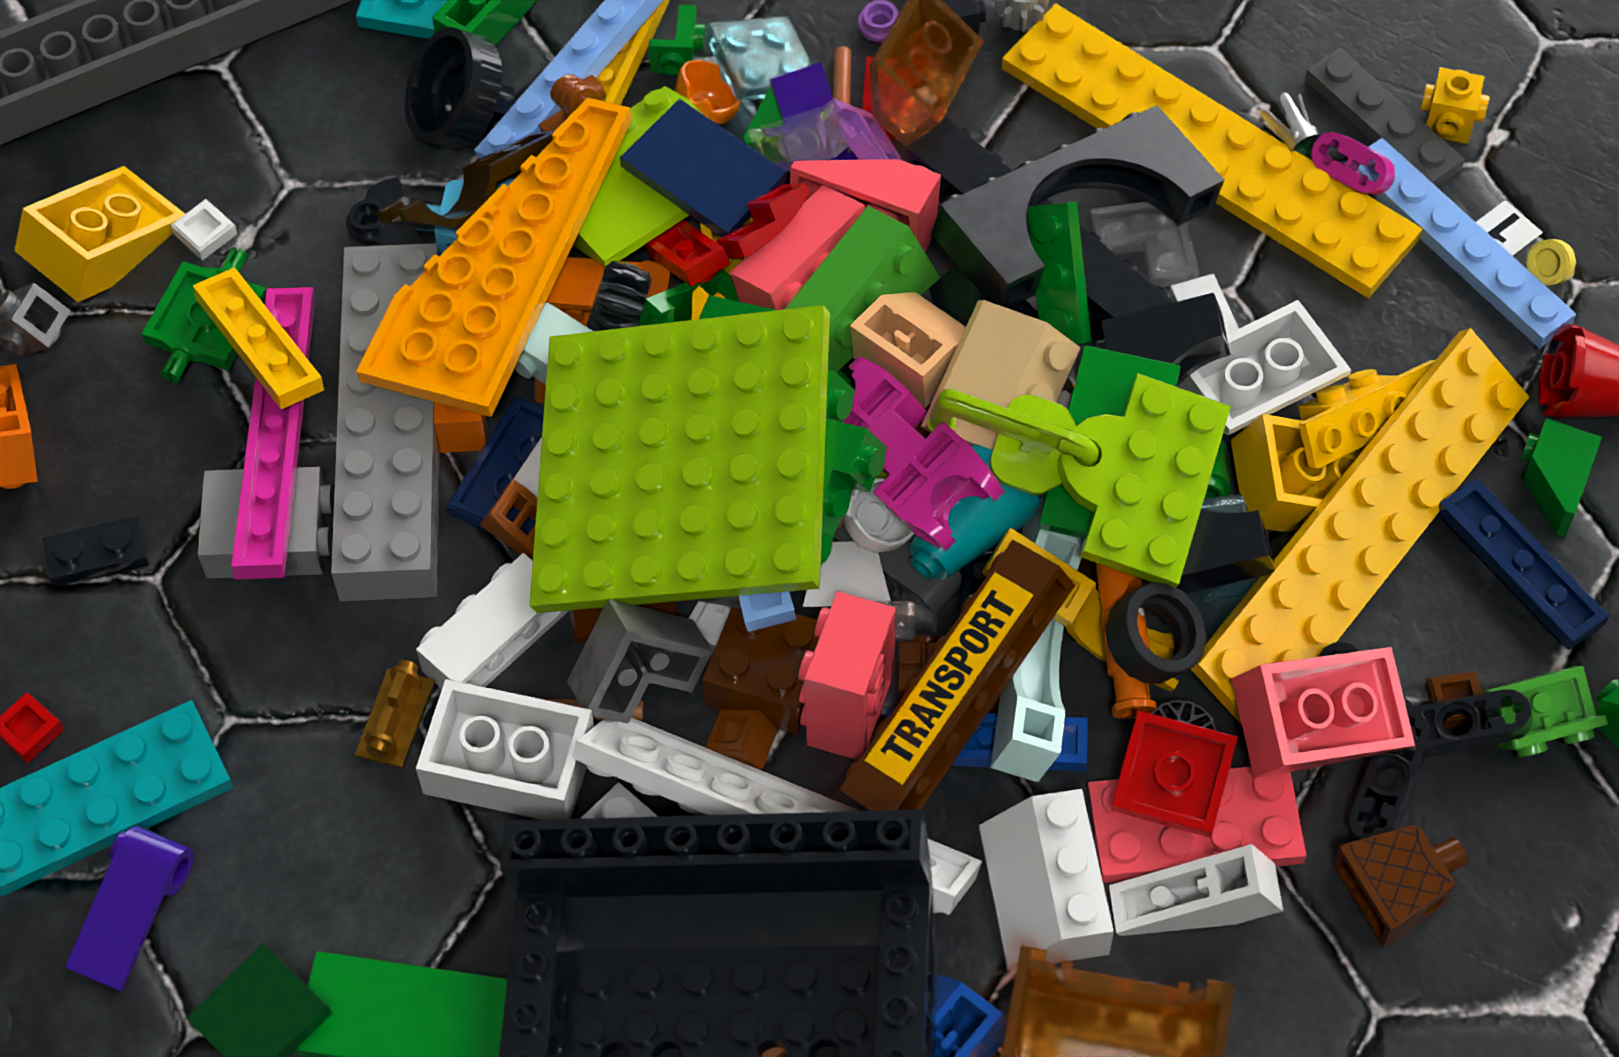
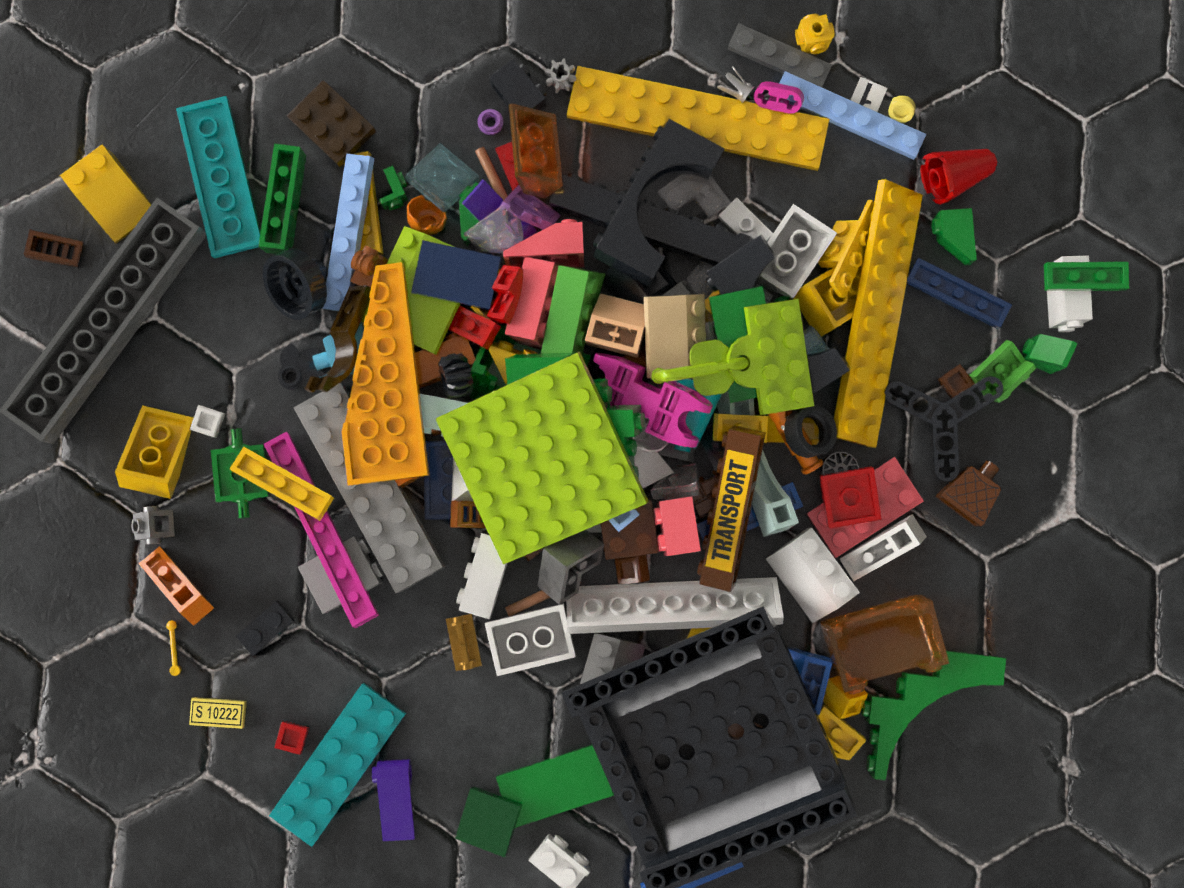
camera: 25 degrees left, 25 degrees up
(1062, 285) = (665, 240): green plate -> none
(1322, 711) = (905, 432): coral slope -> none

